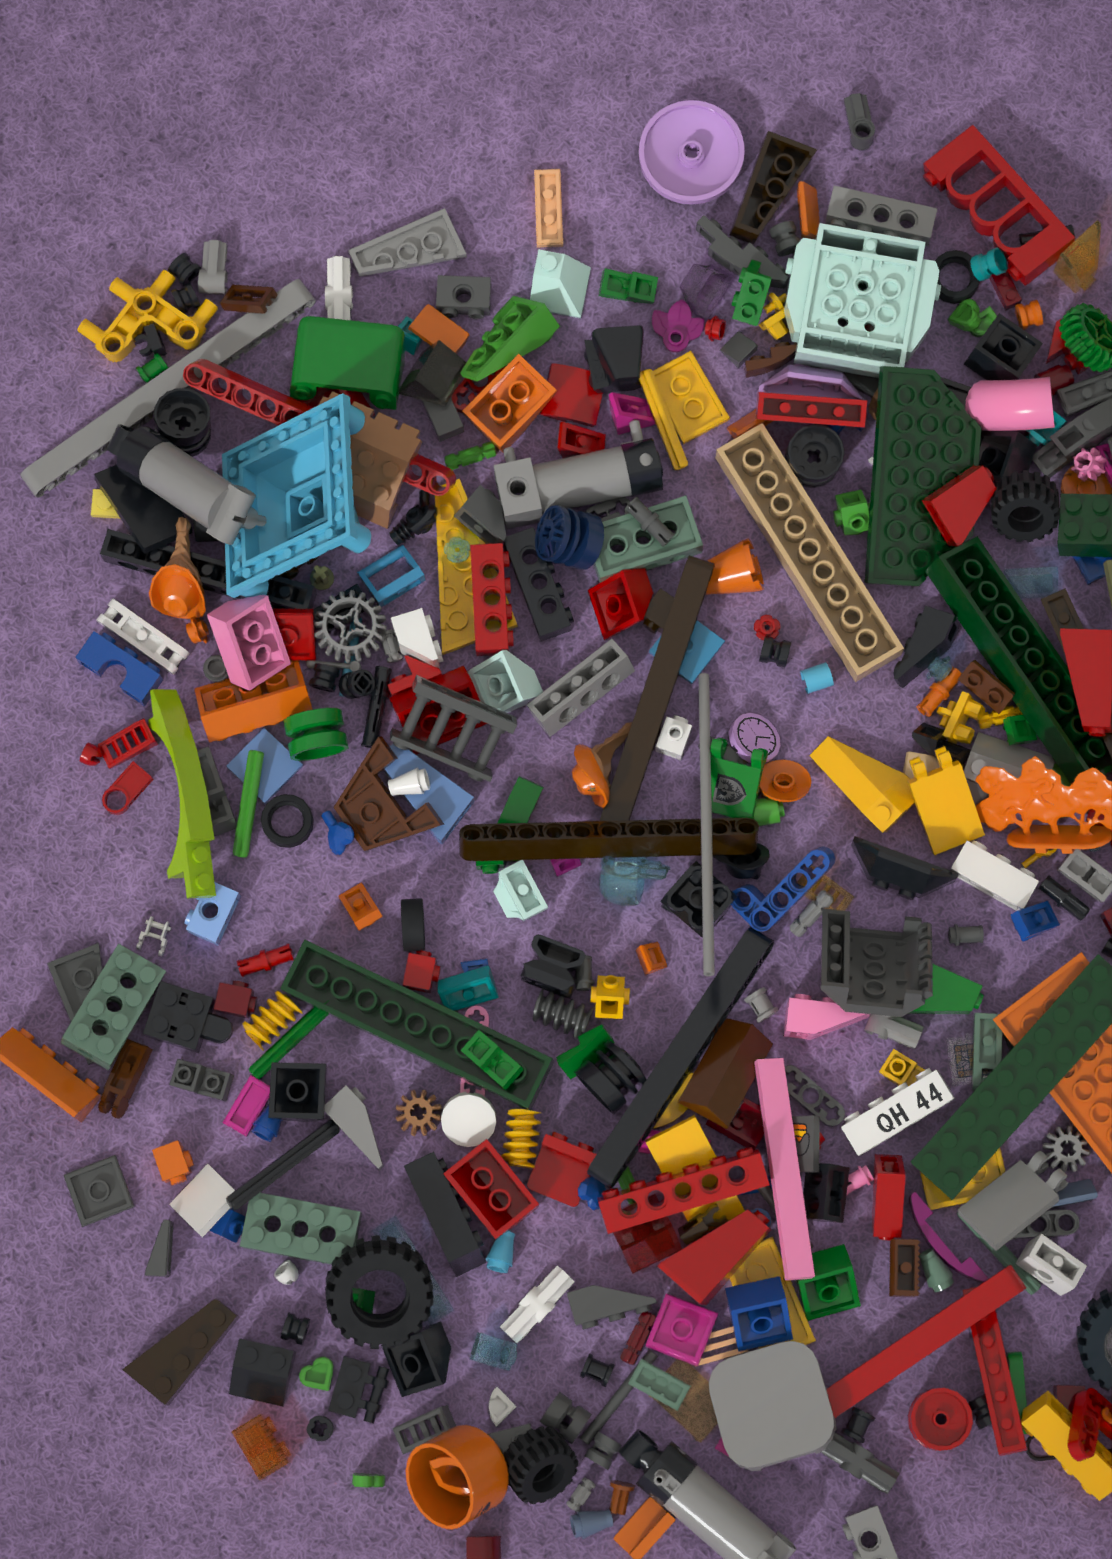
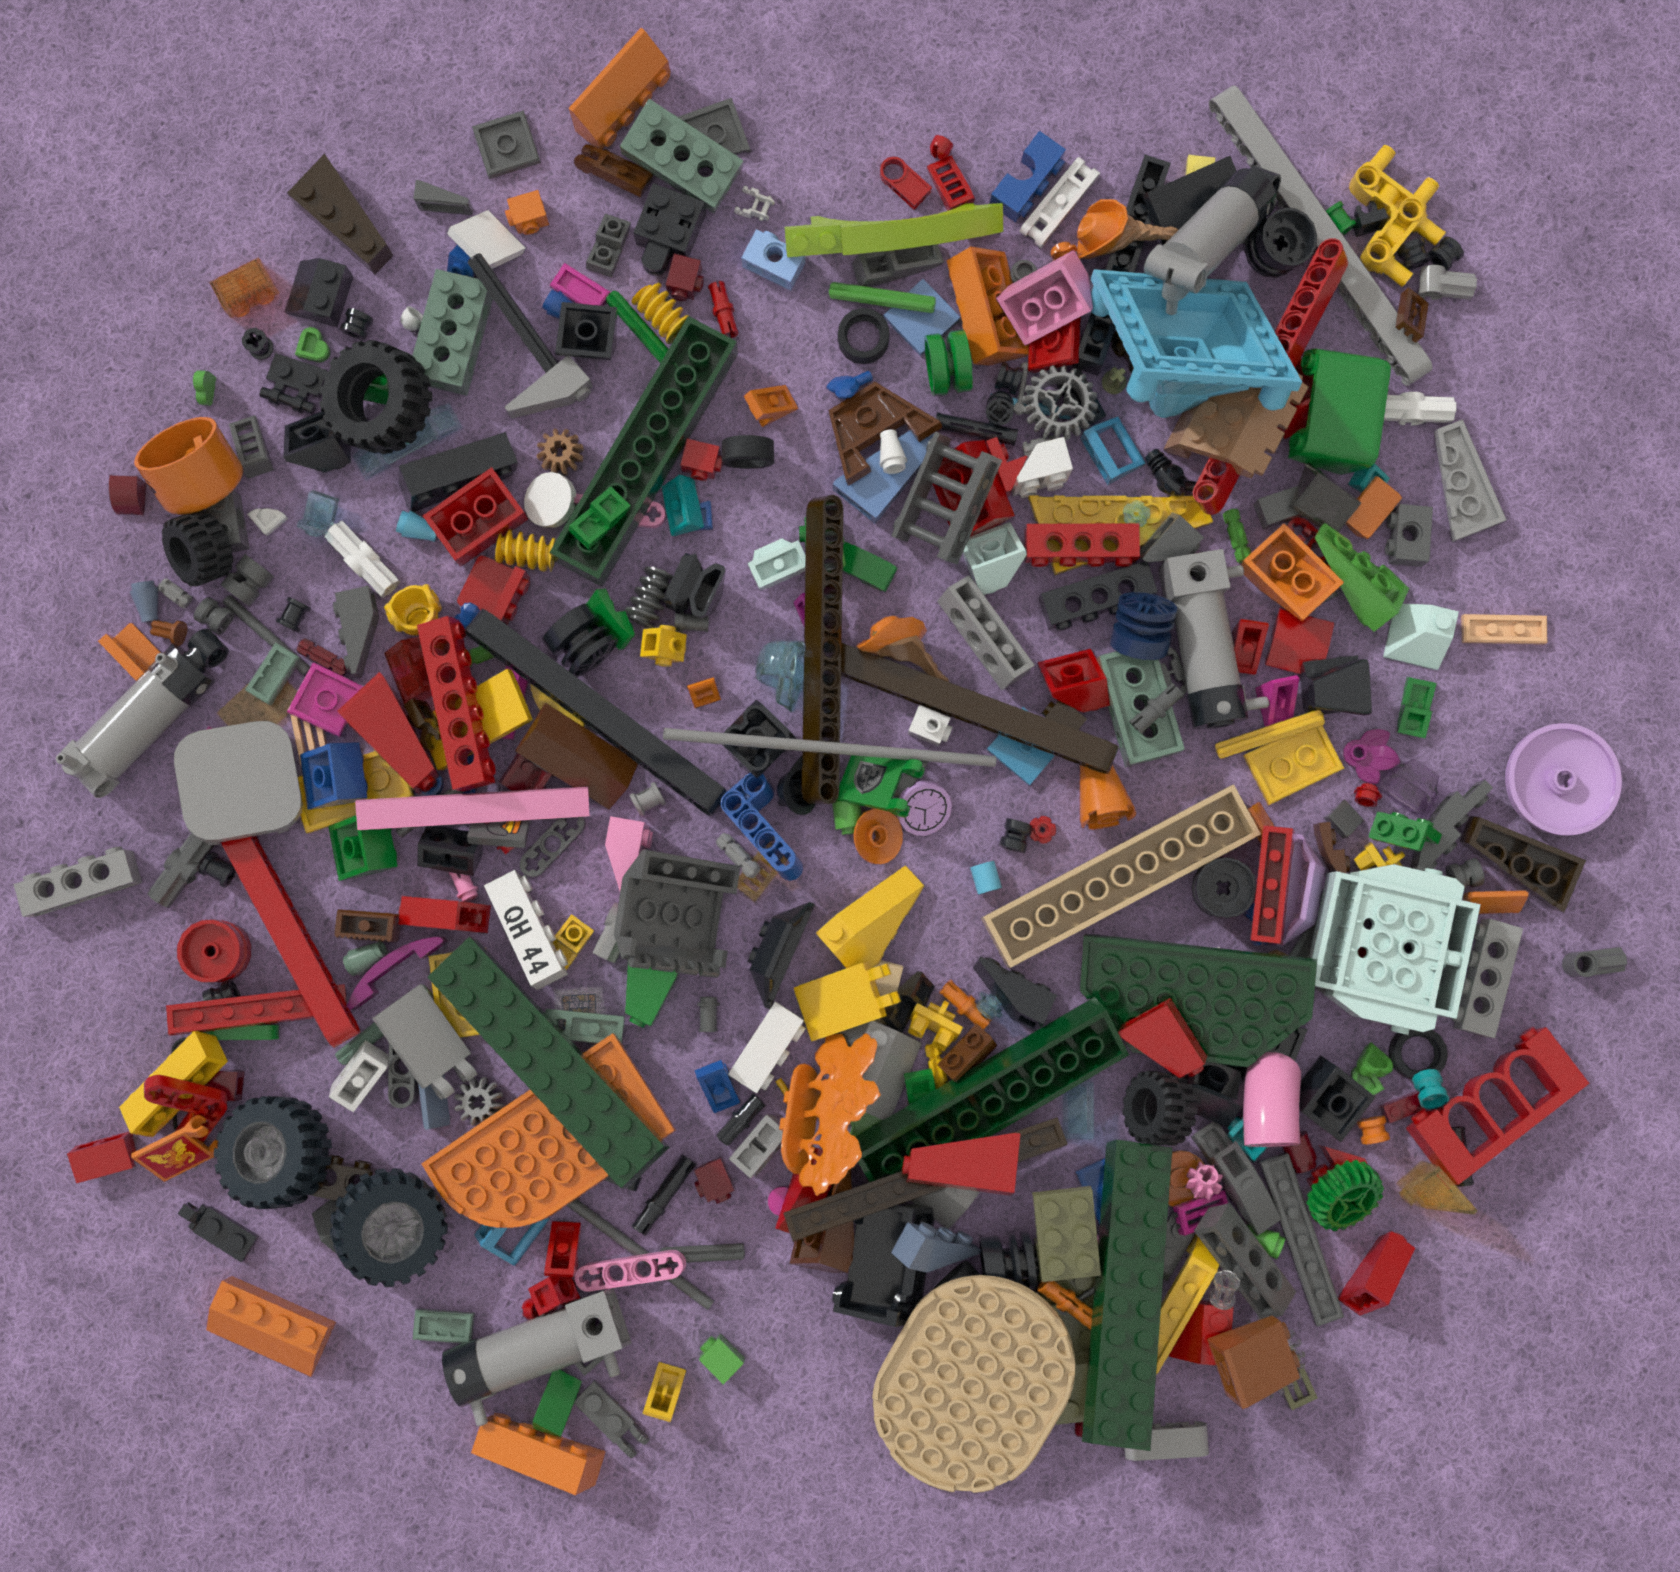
camera: 85 degrees right, 5 degrees up
(587, 1246) = (412, 607): none -> yellow hair
(852, 512) = (1161, 924): bright green brick -> none

